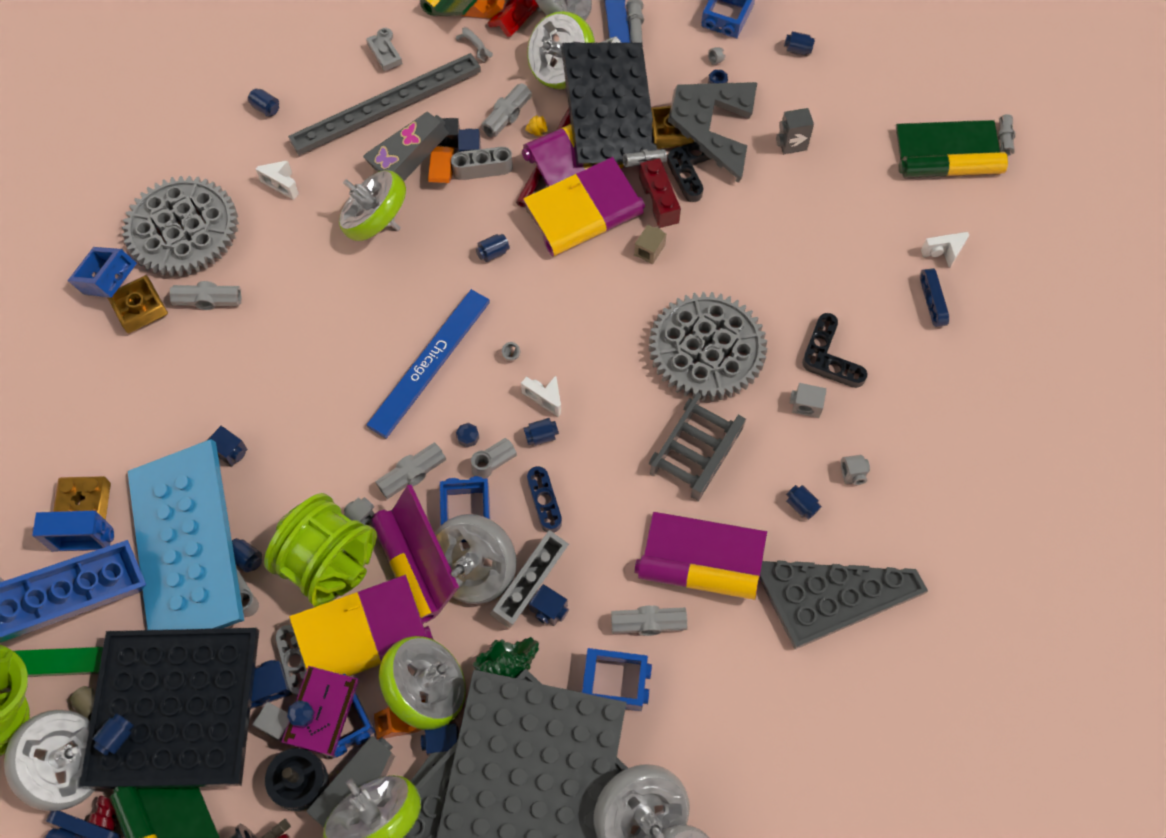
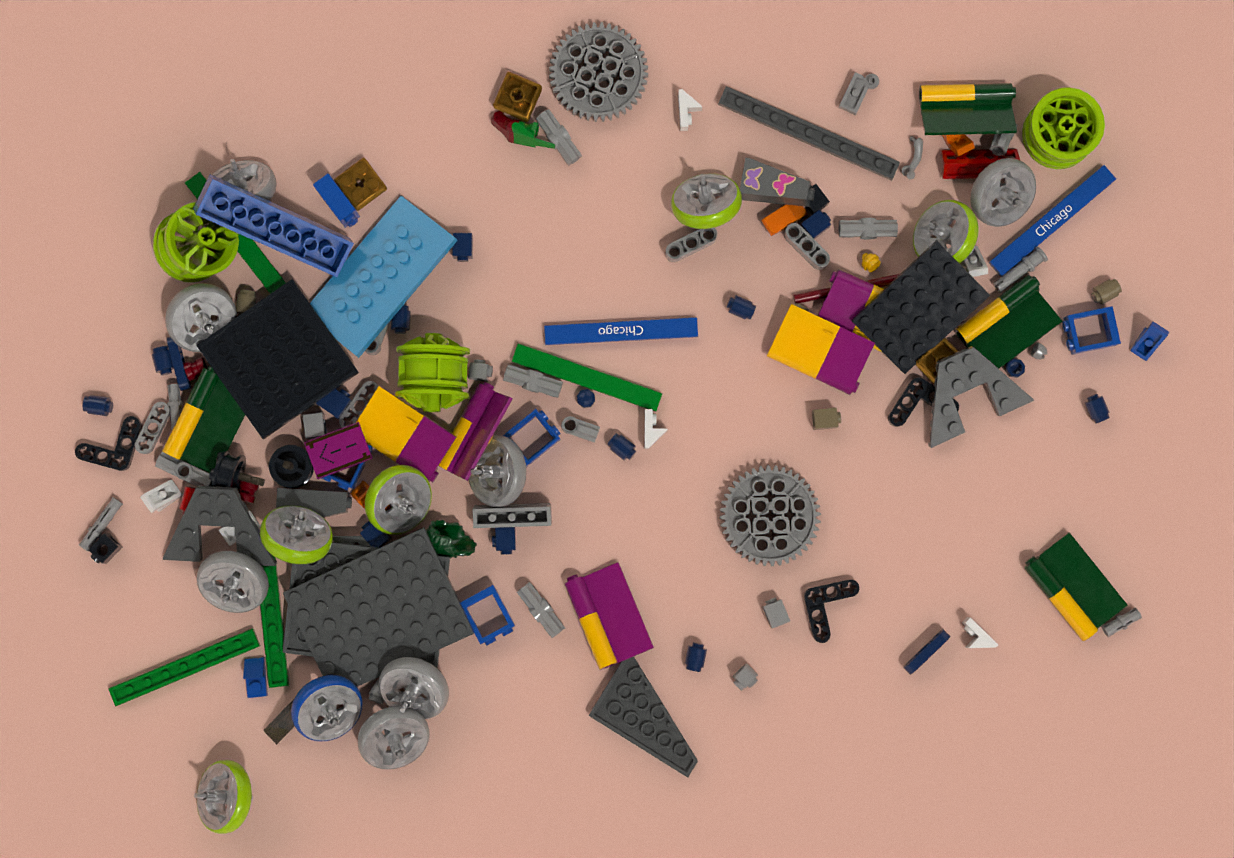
camera: 50 degrees right, 20 degrees up
(105, 265) = (532, 65): blue window -> none
(112, 734) = (236, 341): dark blue brick -> none
(169, 324) = (519, 131): none -> green animal
(263, 102) = (742, 42): dark blue brick -> none
(300, 714) = (326, 442): dark blue tile -> none
(402, 258) = (685, 251): none -> light grey beam
(446, 421) = (586, 377): none -> green tile
(507, 348) = (666, 378): light grey hinge -> none
(533, 485) = (572, 498): dark blue beam -> none
(635, 159) = (893, 365): light grey pin -> none
(657, 184) = (874, 395): dark red arch -> none
(673, 58) = (1010, 323): none -> dark green door
(709, 465) = (678, 576): dark grey fence -> none
(795, 131) = (1000, 461): dark grey brick -> none

